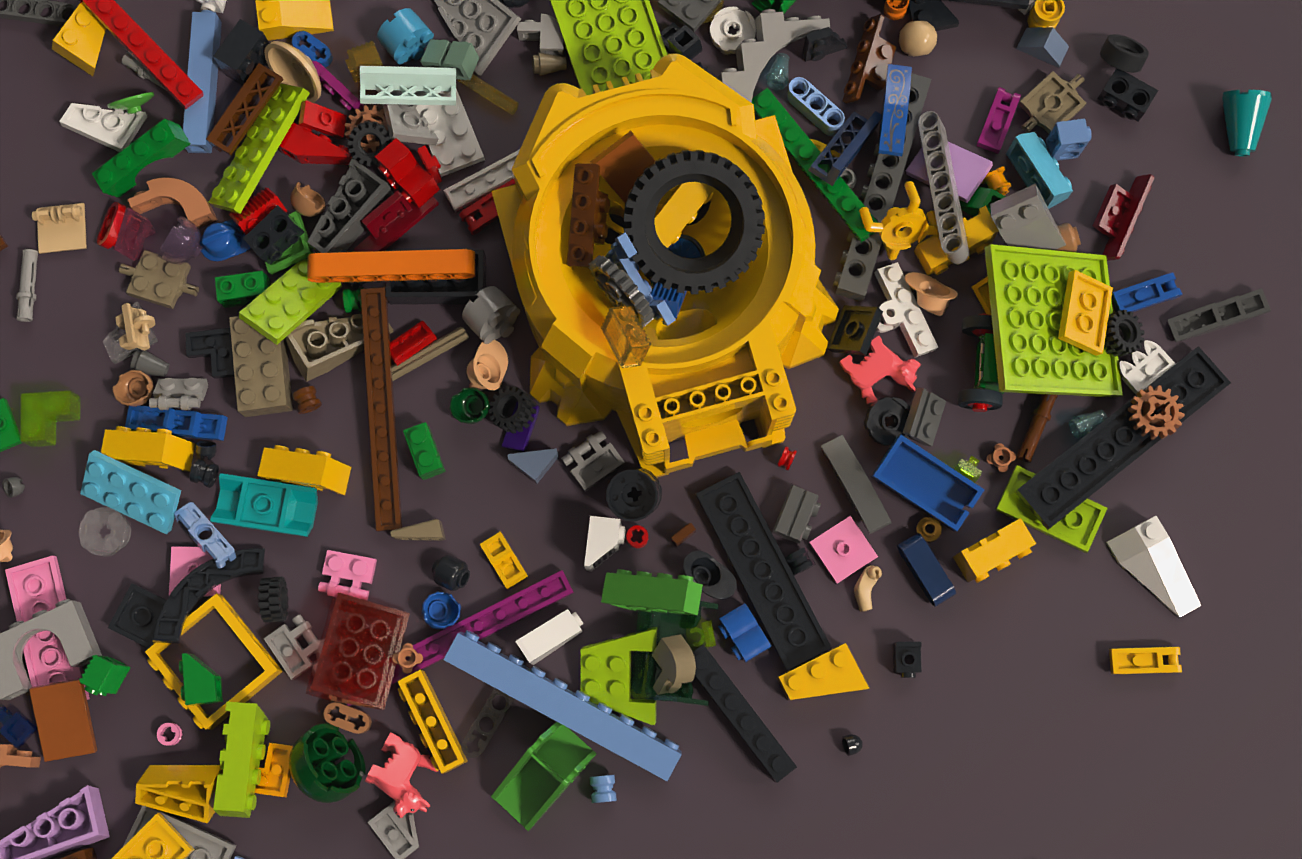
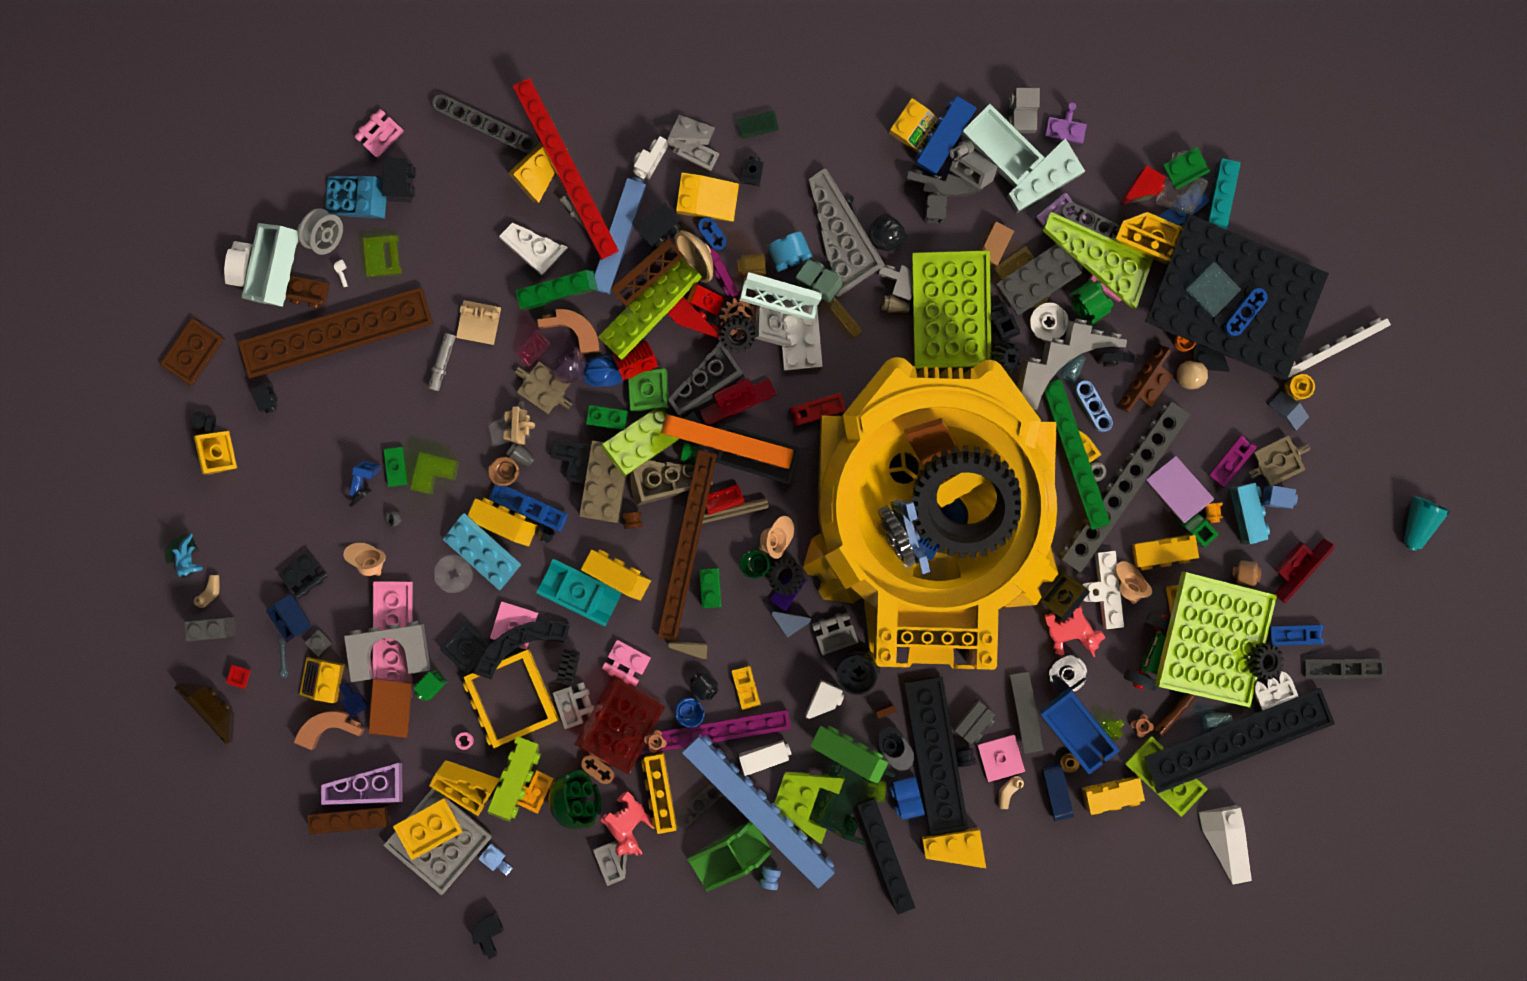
camera: 10 degrees right, 10 degrees up
(111, 226) = (518, 333): red plate -> none
(131, 104) = (559, 238): bright green dish -> none
(178, 393) = (537, 486): light grey plate -> none
(196, 523) = (525, 590): medium blue piece -> none
(200, 682) = (500, 715): green slope -> none
(204, 473) = (540, 553): black wheel -> none
(271, 231) = (642, 381): black brick -> none
(307, 201) = (675, 362): medium nougat hair -> none
(406, 174) = (757, 363): red brick -> none
(430, 163) = (779, 363): red plate -> none
(481, 183) = (822, 385): white tile -> none
(491, 314) = (791, 500): light grey brick -> none
(587, 215) = (888, 470): reddish brown bracket -> none
(626, 336) = (889, 576): clear yellow brick -> none
(629, 535) = (856, 703): red bush -> none
(676, 662) = (851, 806): dark tan brick -> none
(787, 458) = (981, 677): red bush -> none
(847, 150) = (1111, 452): dark blue fence -> none
(852, 744) = (960, 902): black hinge -> none
(895, 110) = (1152, 434): blue slope -> none
(897, 218) = (1126, 531): yellow plate -> none
(900, 650) = (1021, 846): black brick -> none
(924, 417) = (1095, 678): dark grey plate -> none
(947, 195) = (1166, 498): light grey beam -> none
(1026, 220) = (1221, 557): light grey slope -> none
(1085, 313) = (1242, 640): yellow plate -> none
(1124, 53) = (1342, 446): black tyre -> none
(1130, 89) = (1343, 468): black brick -> none
(1144, 660) = (1195, 908): yellow plate -> none
(1153, 400) = (1271, 739): nougat gear -> none

